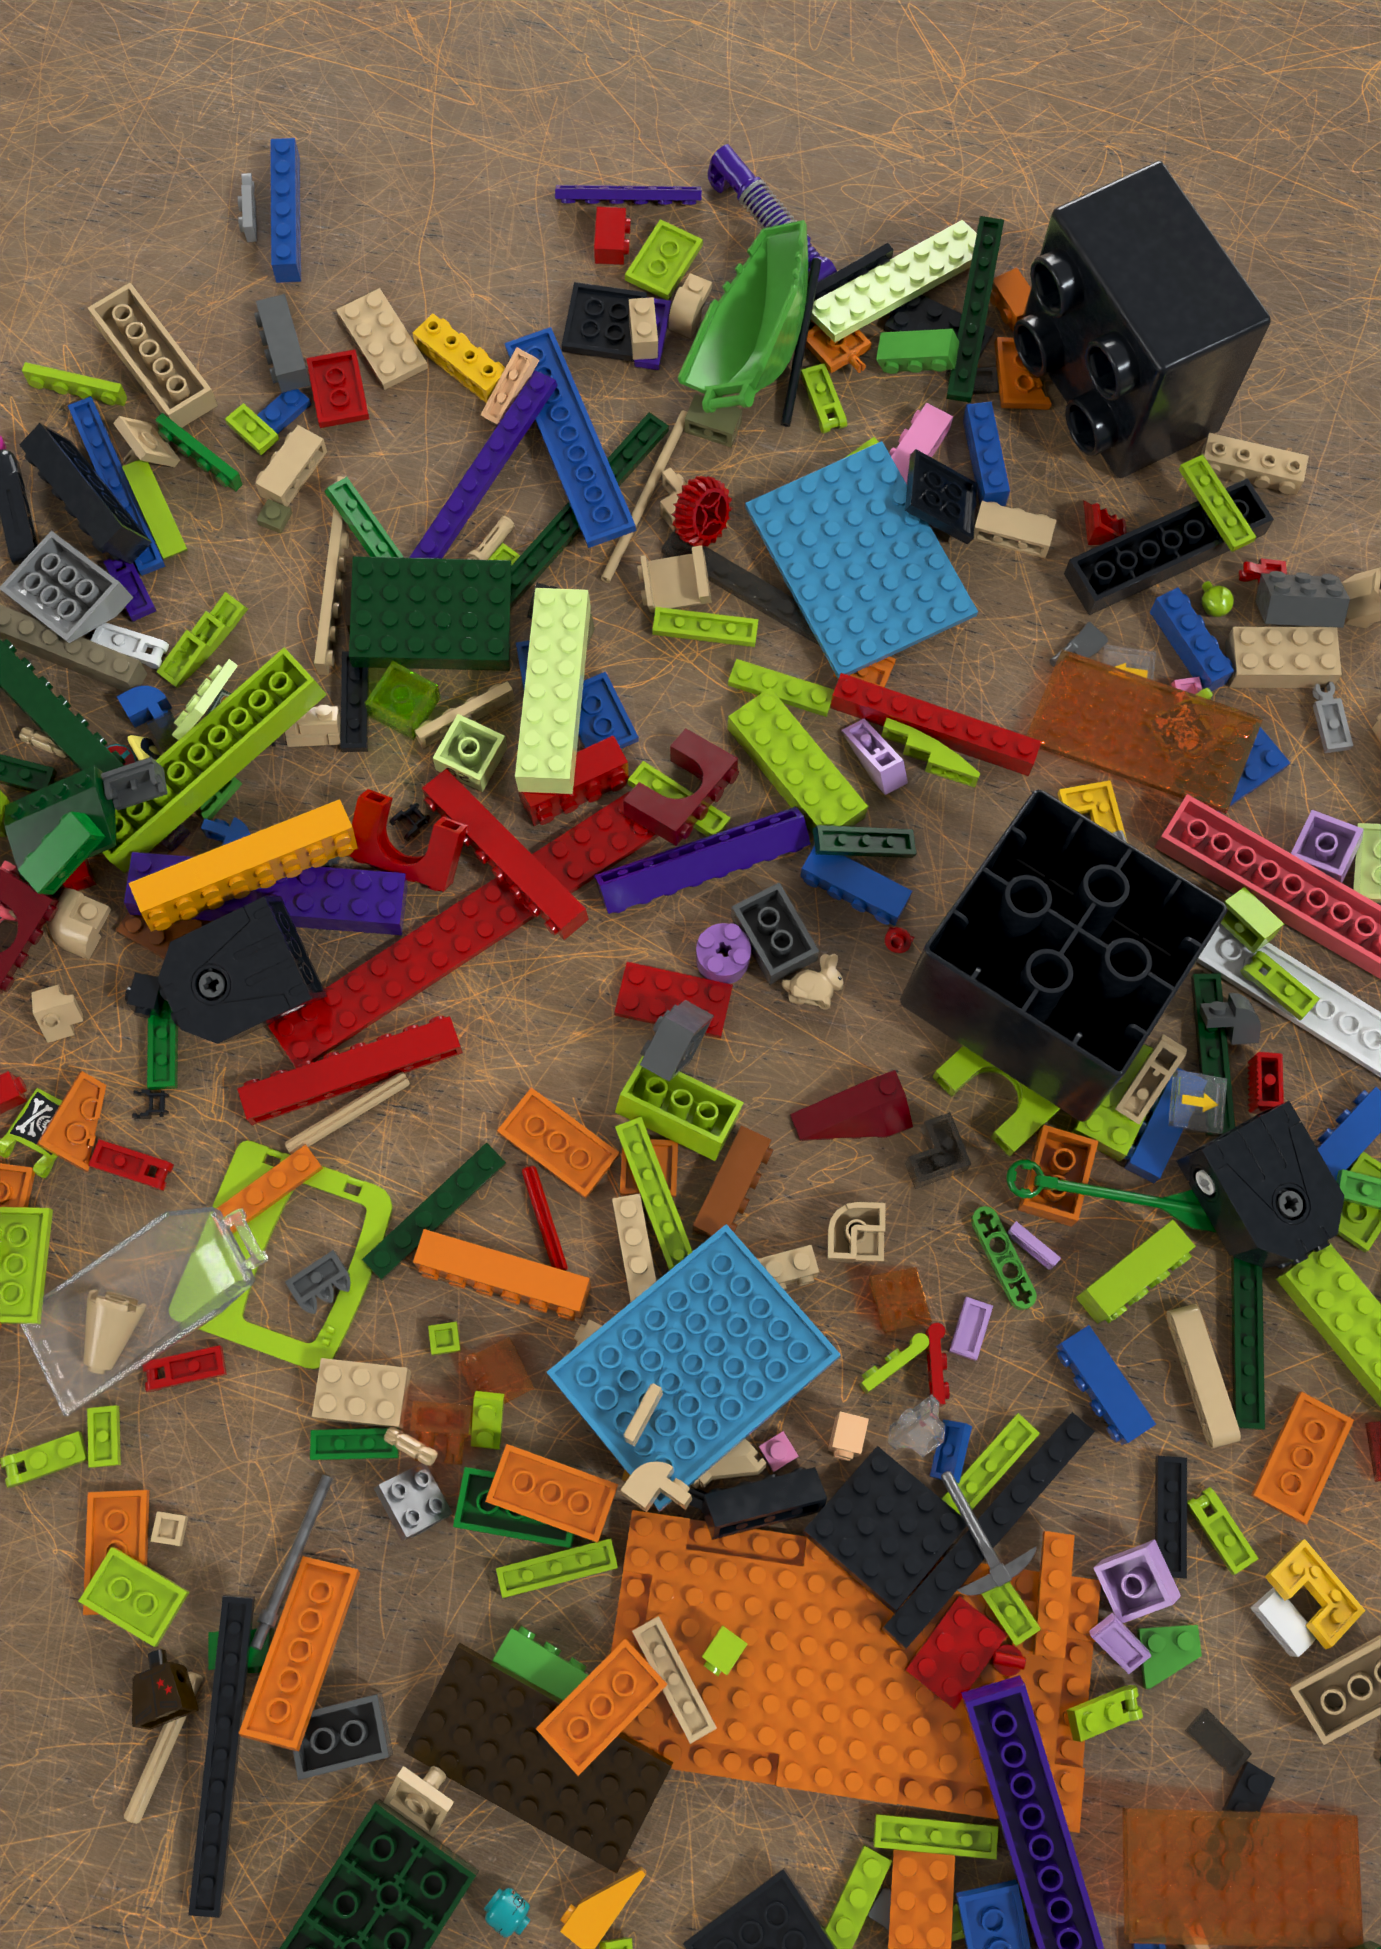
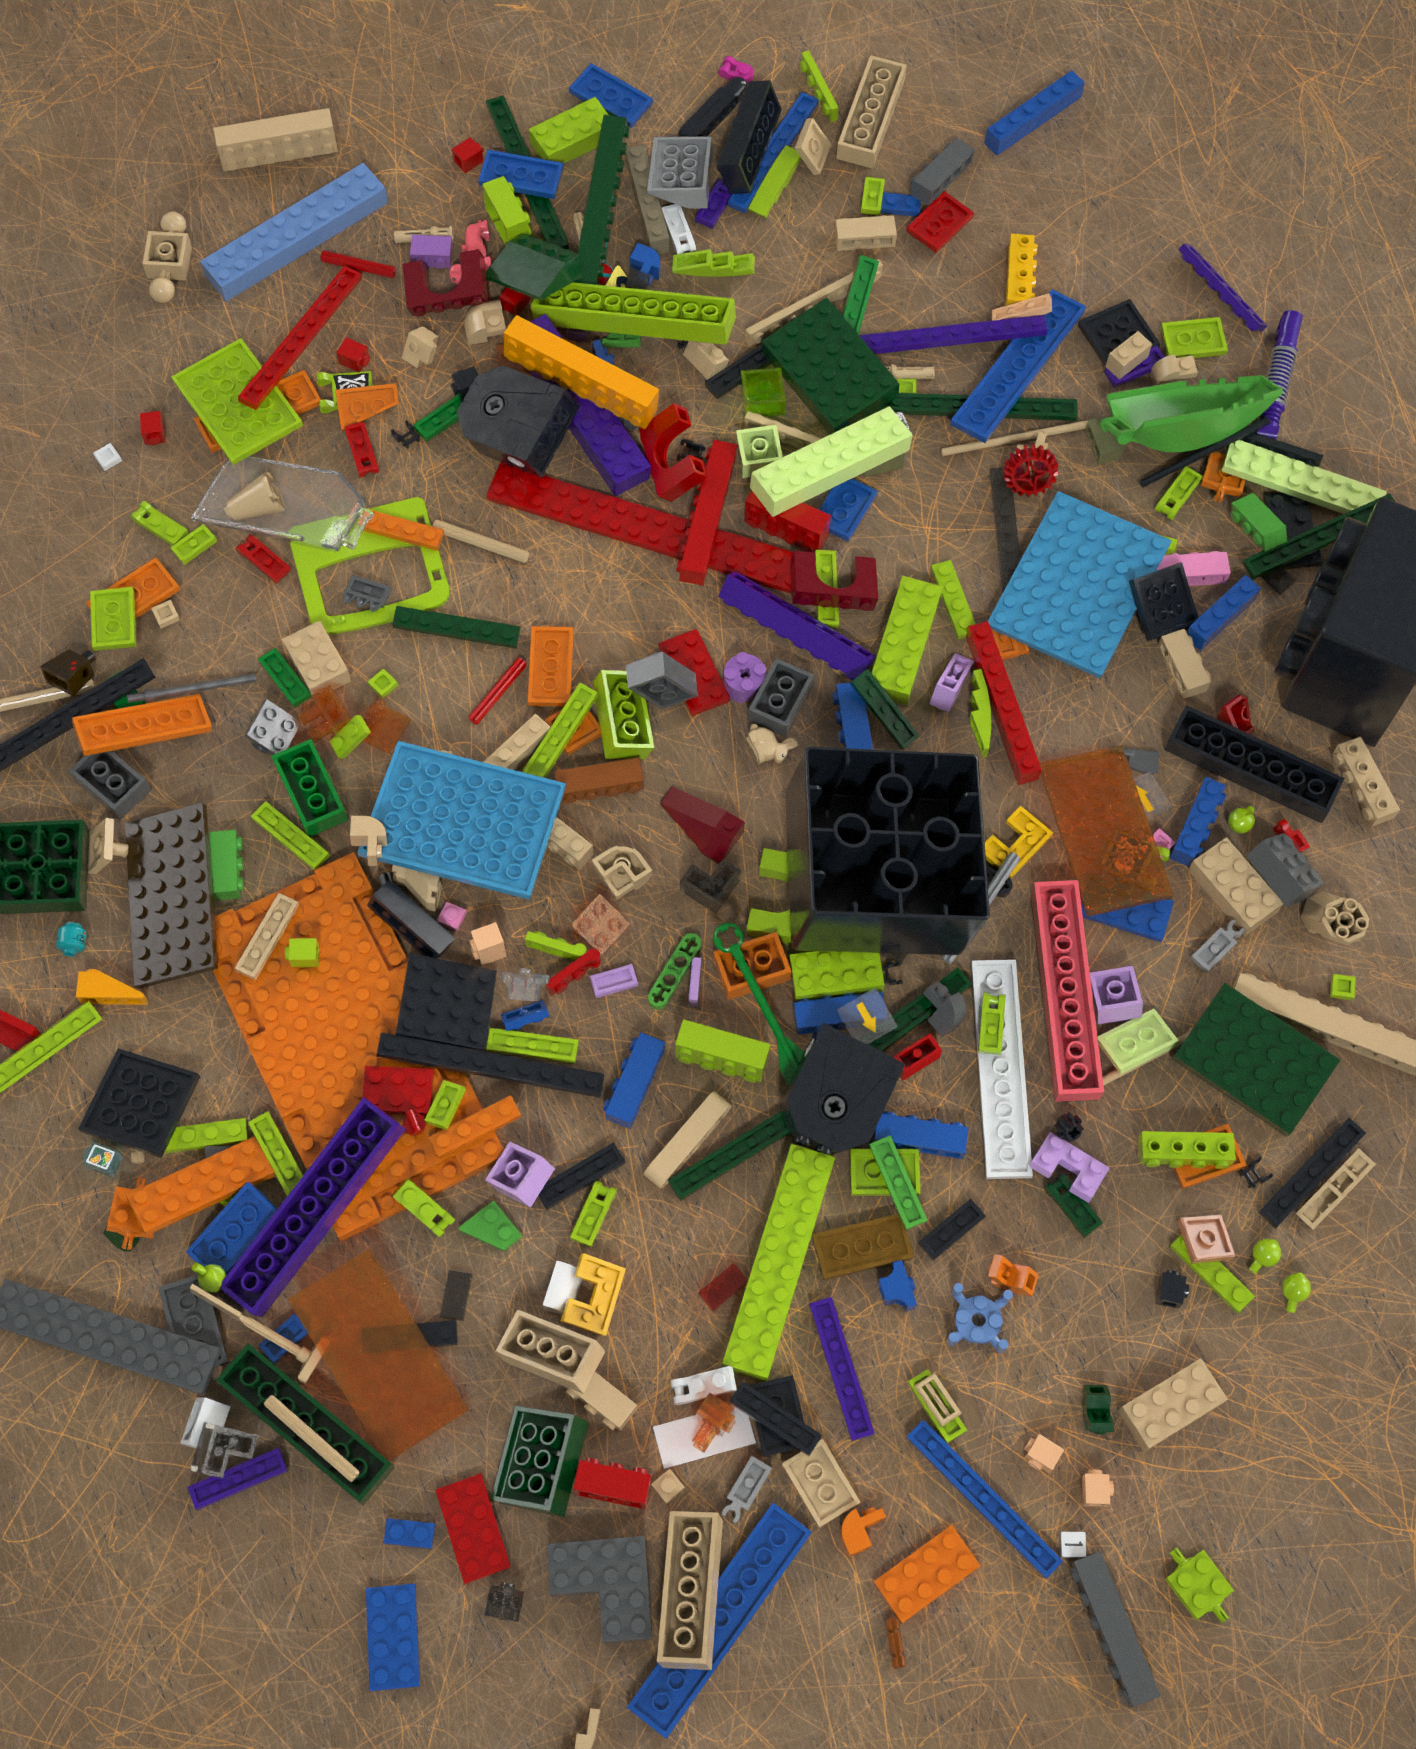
camera: 55 degrees right, 5 degrees down
(61, 852) = (513, 276): green brick -> none
(134, 783) = (586, 284): dark grey hinge -> none
(204, 457) = (830, 185): green plate -> none
(207, 693) = (674, 284): yellowish green plate -> none
(247, 206) = (1018, 93): light grey plate -> none
(274, 516) = (826, 247): olive plate -> none
(349, 1070) = (507, 523): red brick -> none
(382, 339) = (996, 223): tan plate -> none
(410, 1446) = (303, 703): tan axle -> none
(502, 1274) = (442, 686): orange brick -> none
(552, 1493) = (327, 792): orange plate -> none
(601, 1707) = (220, 901): orange plate -> none
(610, 235) = (1182, 297): red brick -> none
(643, 1414) = (408, 804): tan tile -> none
(675, 581) = (972, 489): tan panel -> none
(705, 627) = (957, 528): lime plate -> none
(999, 1573) = (463, 1080): flat silver piece -> none
(1016, 384) = (1291, 600): orange wing -> none
(1120, 1643) = (473, 1189): lavender tile -> none
(1151, 1079) = (855, 973): tan slope -> none
(1217, 503) = (1305, 767): lime plate -> none
(1250, 920) = (1021, 975): lime brick -> none
(1302, 1458) = (679, 1236): orange plate -> none

